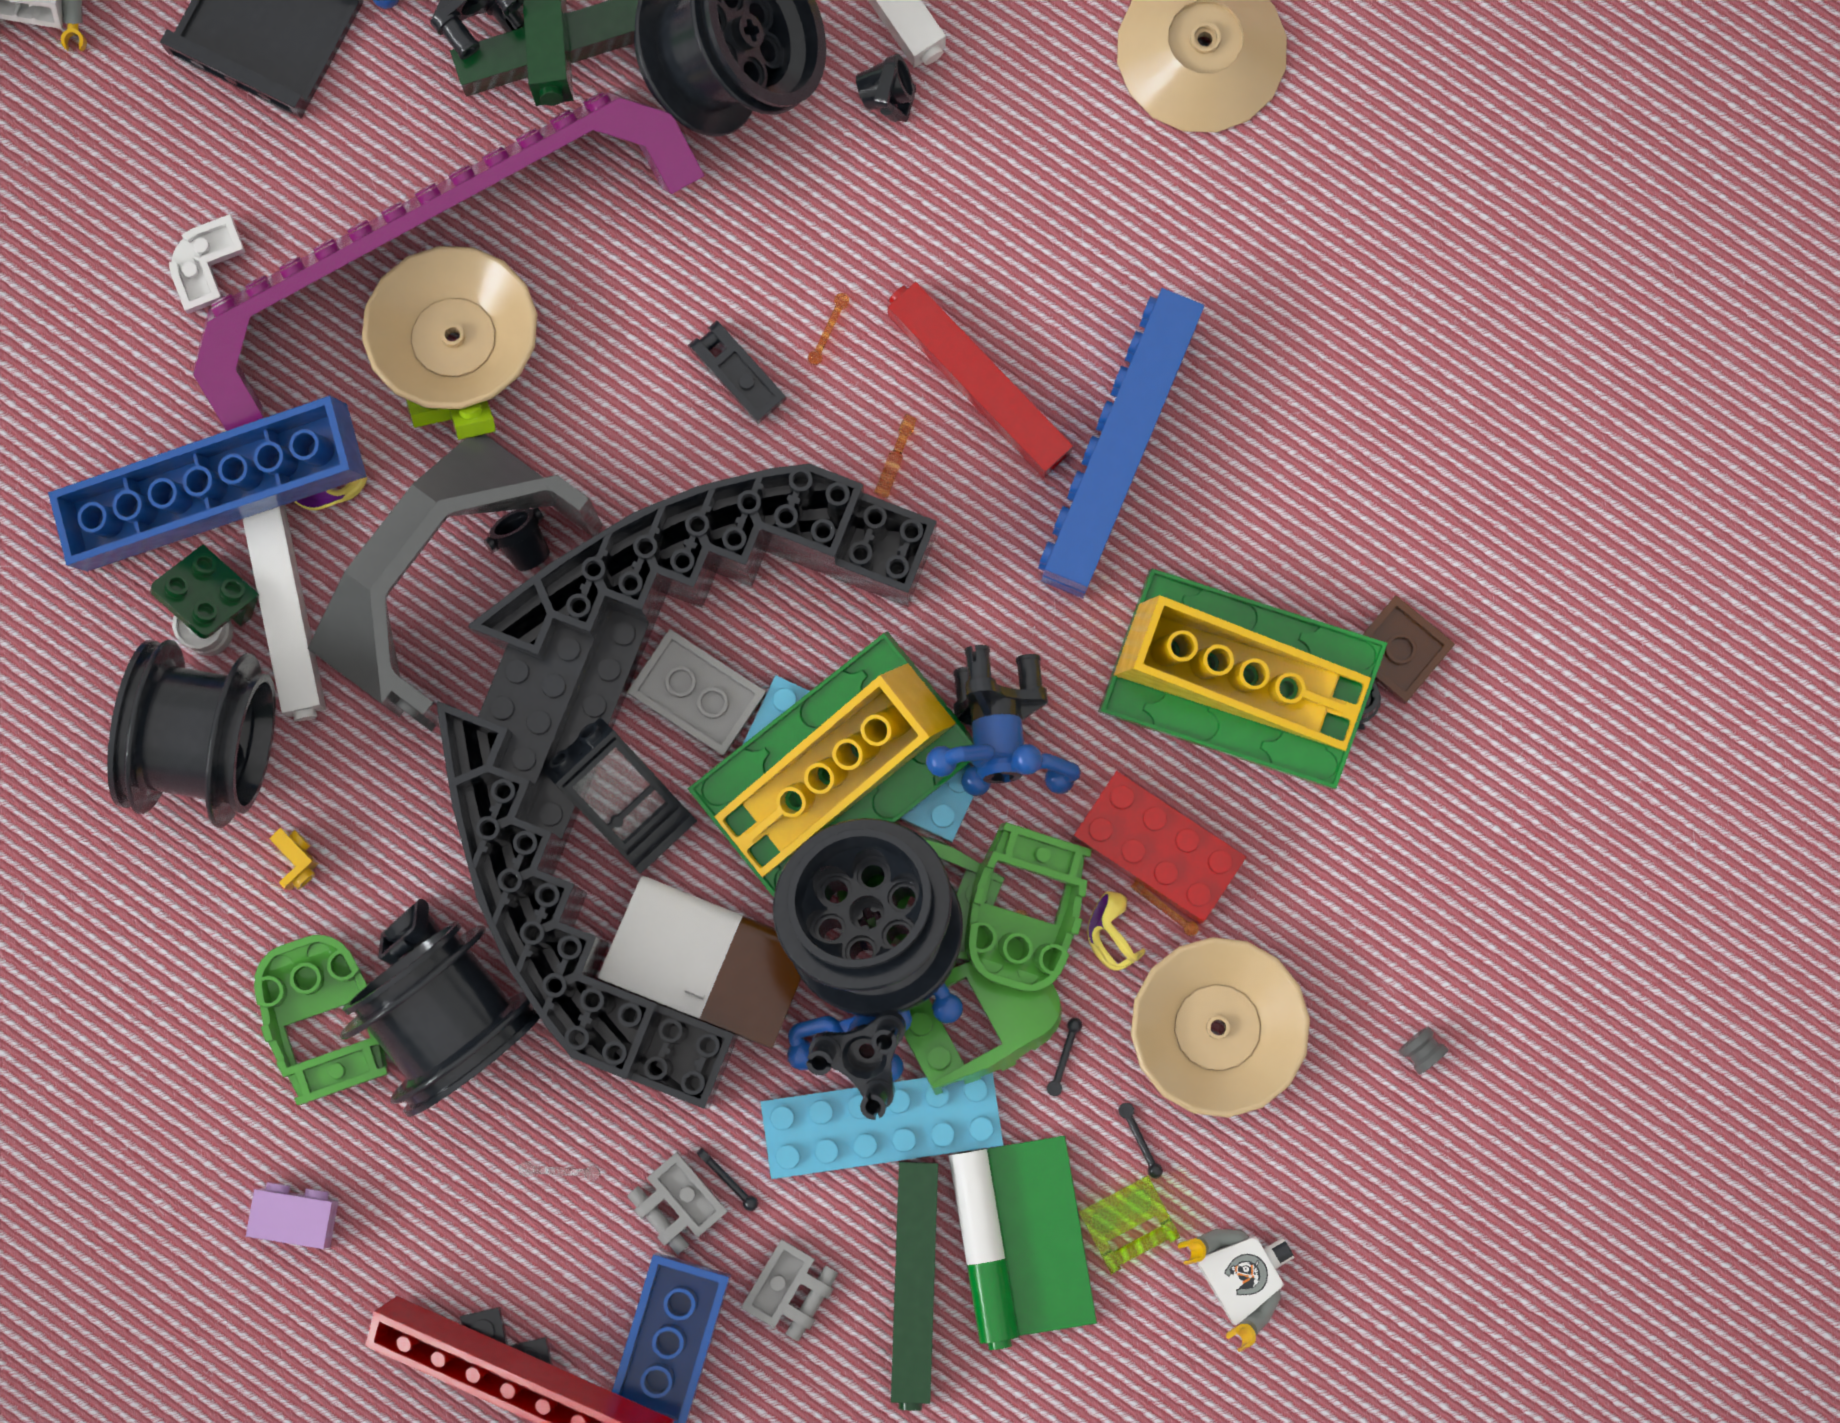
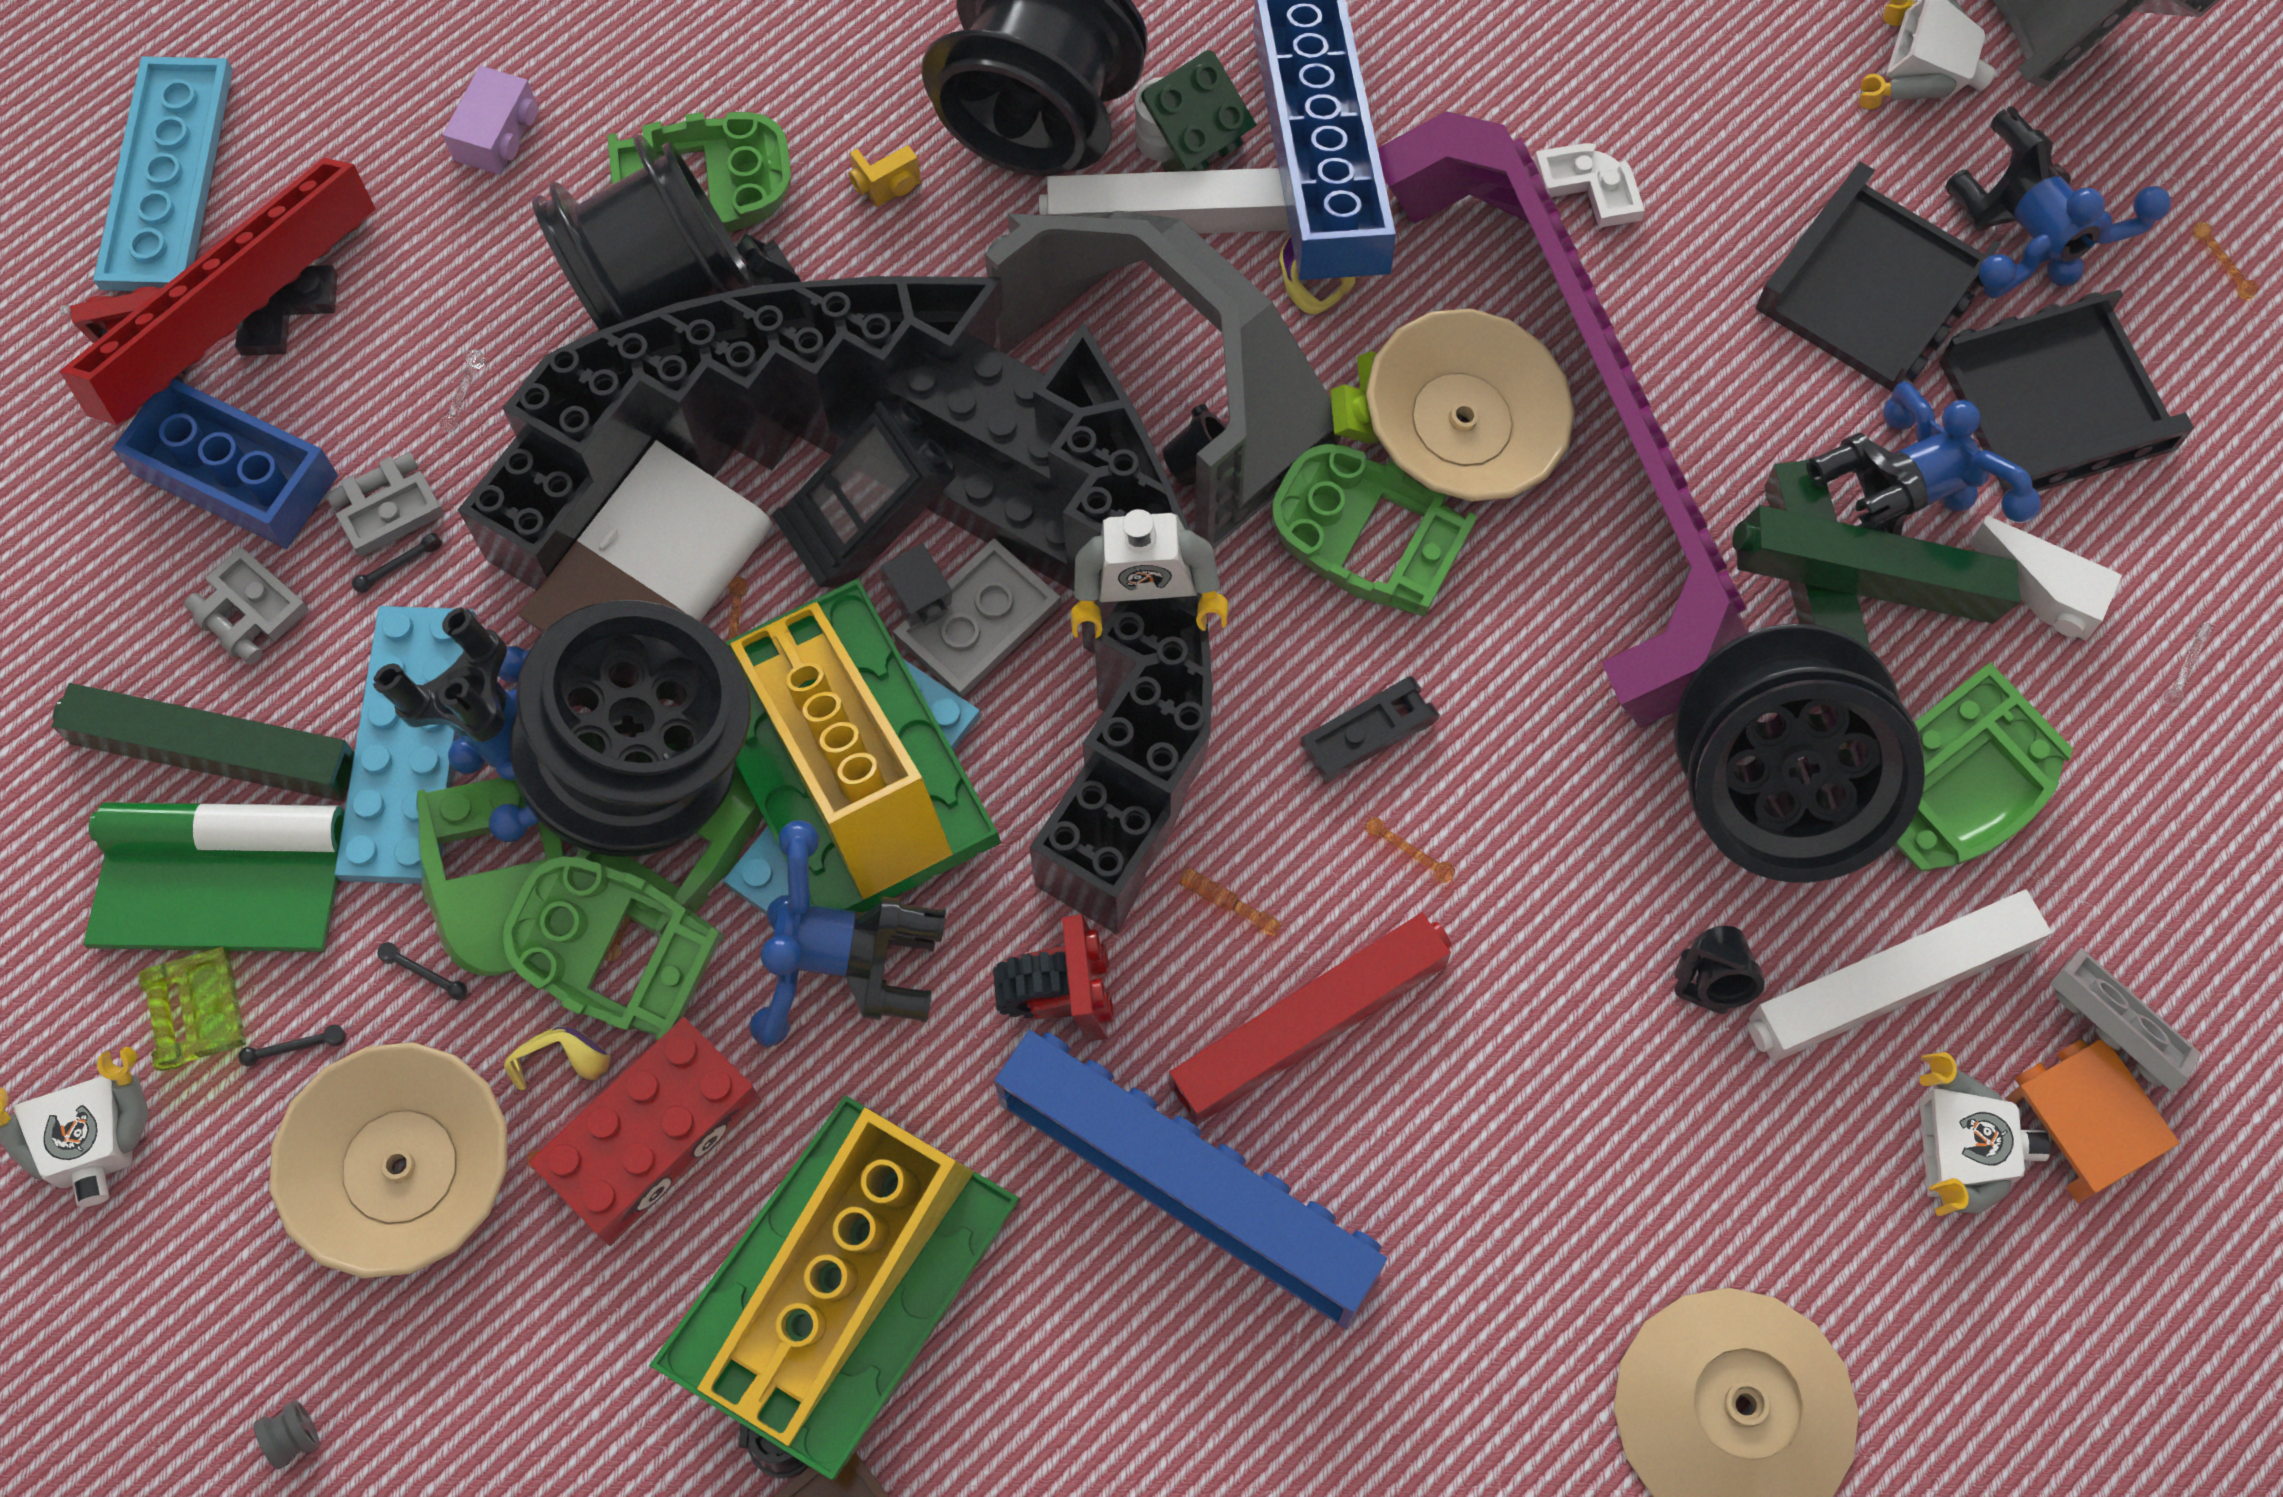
camera: 105 degrees right, 15 degrees down
(552, 433) = (1329, 503): none -> bright green slope
(689, 737) = (917, 586): none -> black brick
(690, 528) = (1145, 559): none -> torso
(702, 893) = (738, 588): none -> clear orange hinge
(992, 565) = (1060, 981): none -> plate

